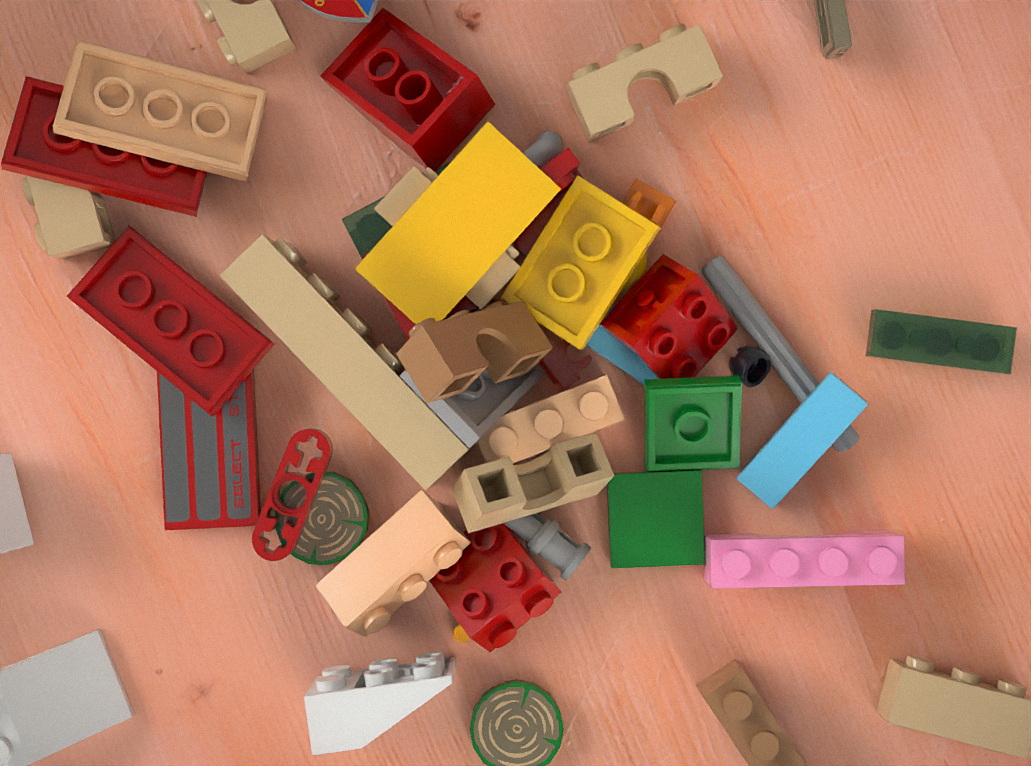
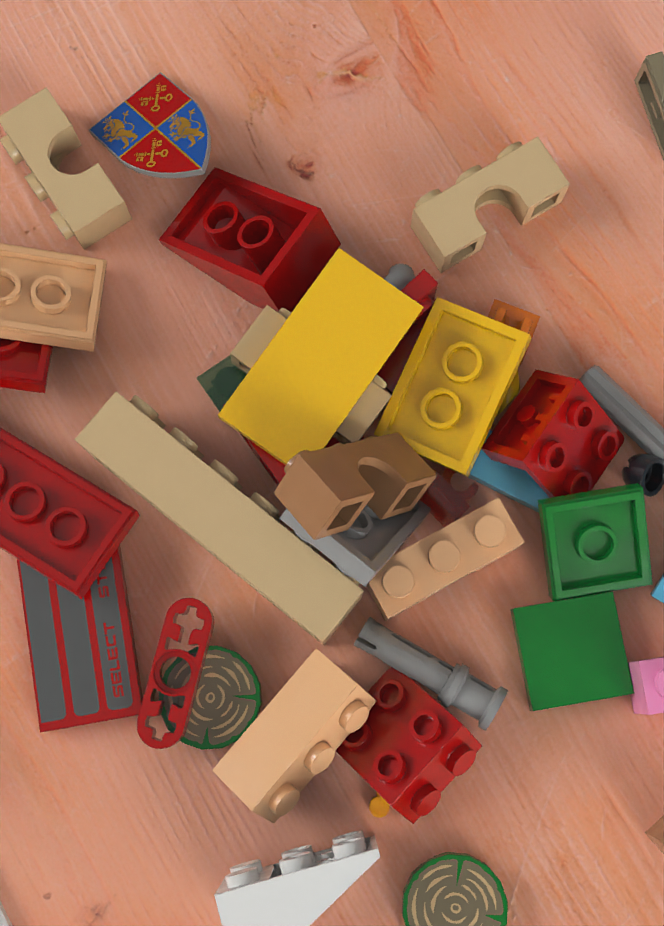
camera: 10 degrees left, 10 degrees down
(506, 492) = (406, 637): tan arch -> none

